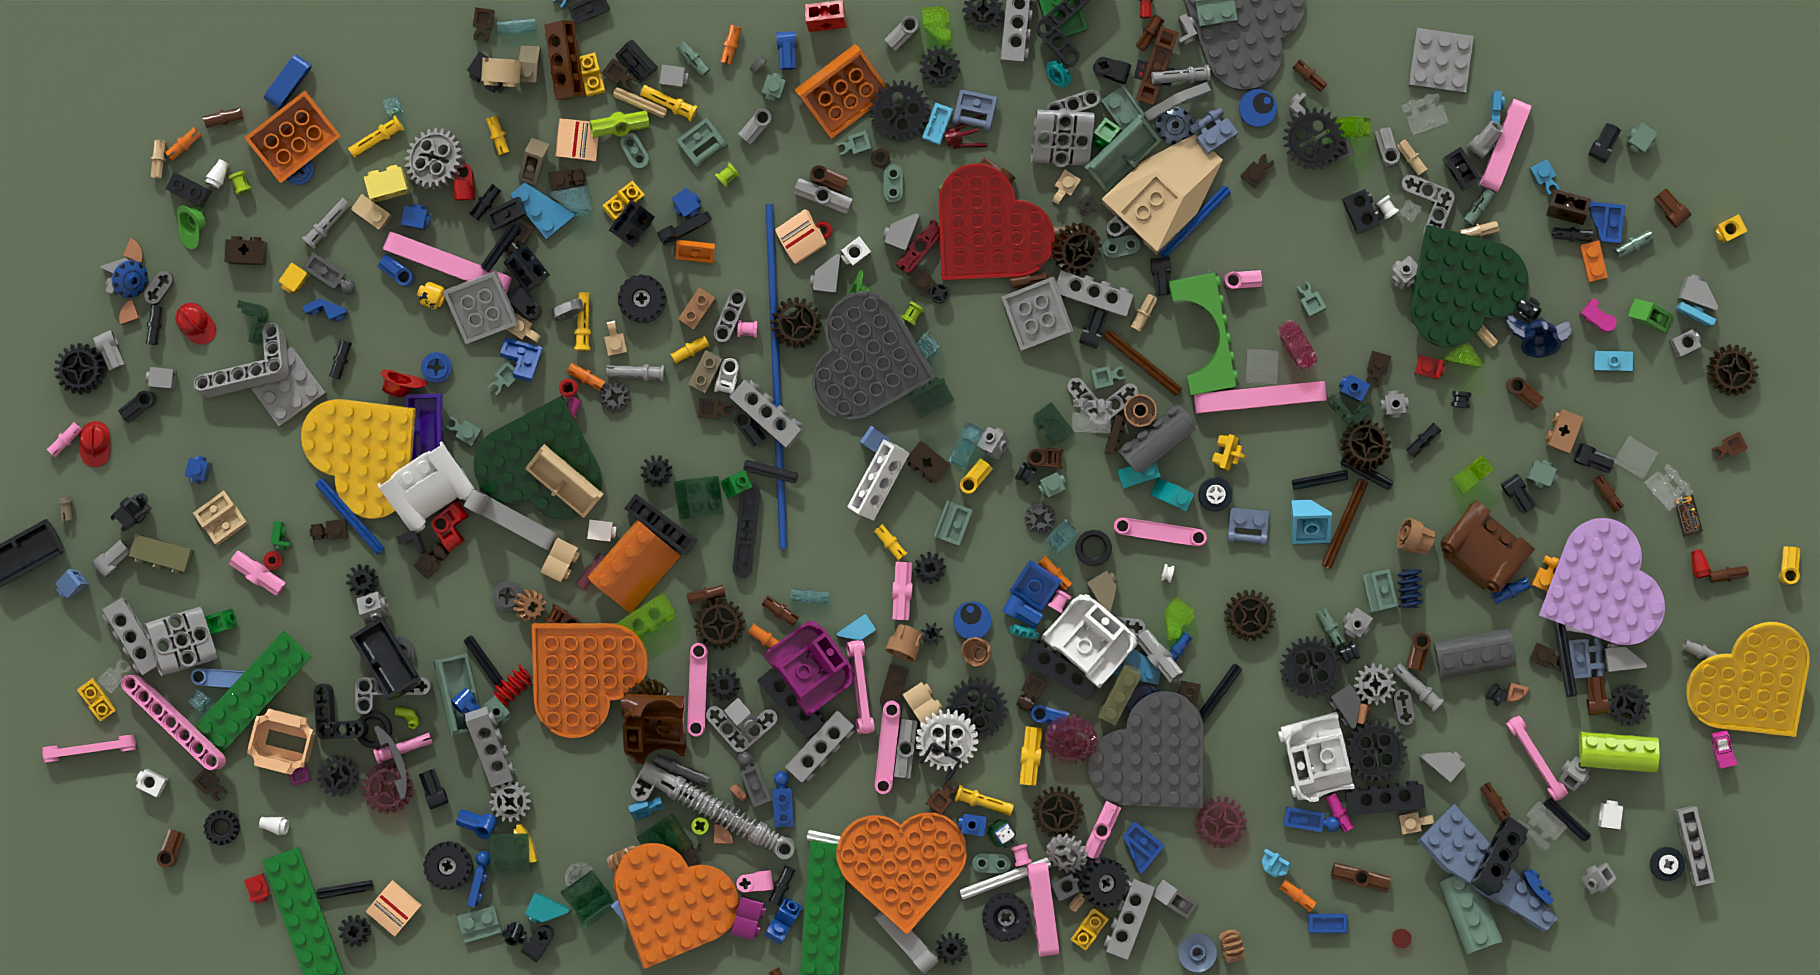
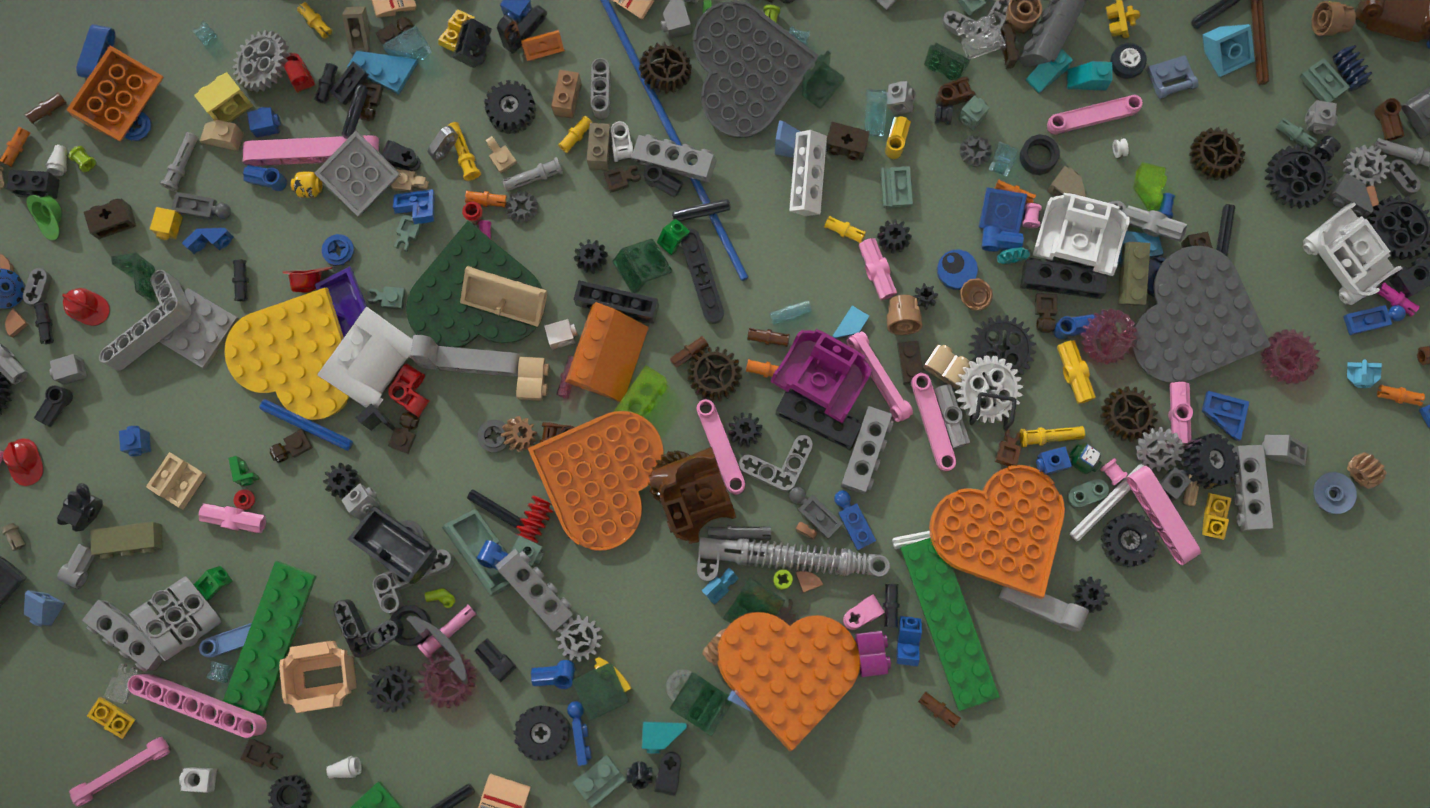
camera: 20 degrees left, 10 degrees down
(300, 776) = (352, 705): magenta tile -> none
(384, 132) = (204, 61): yellow pin -> none
(526, 268) = (388, 122): black brick -> none
(741, 715) = (775, 451): light grey brick -> none
(747, 328) = (622, 93): bright pink bush -> none

